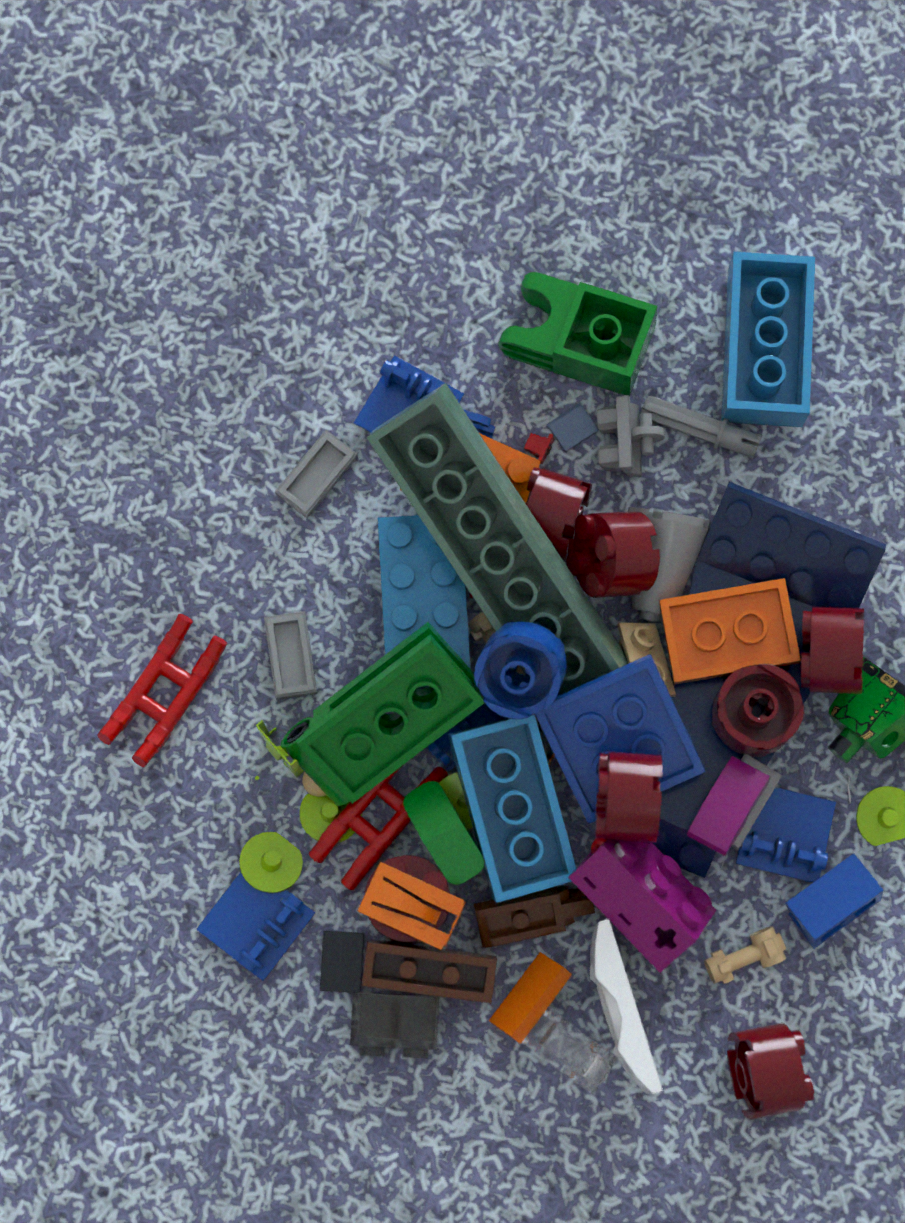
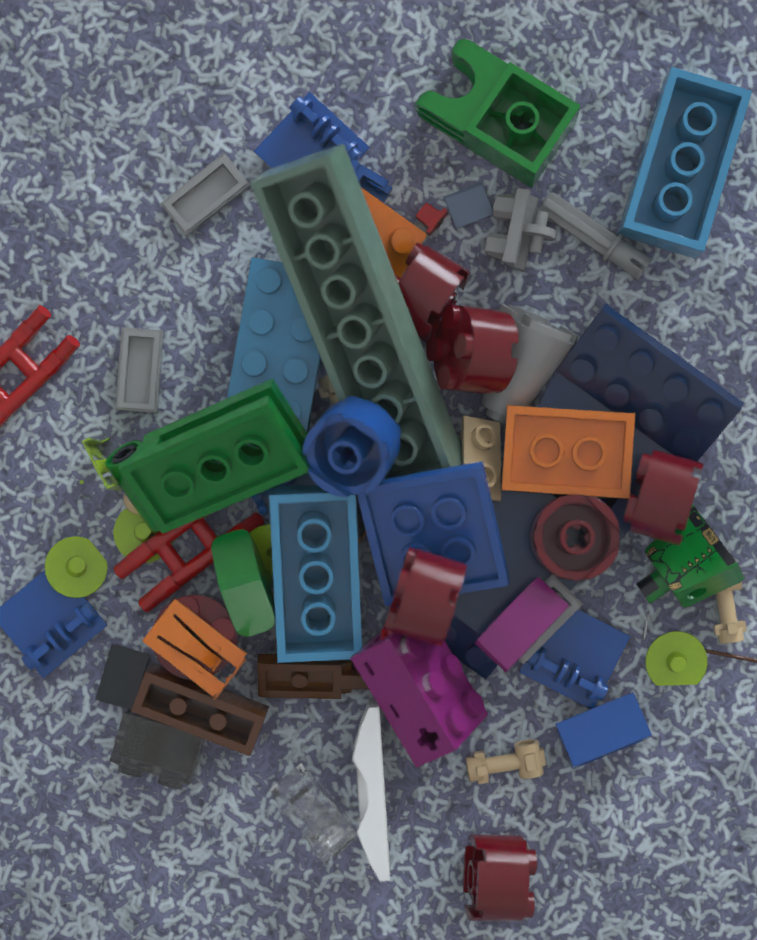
camera: 10 degrees right, 10 degrees up
(530, 997) = (291, 754): orange tile -> none

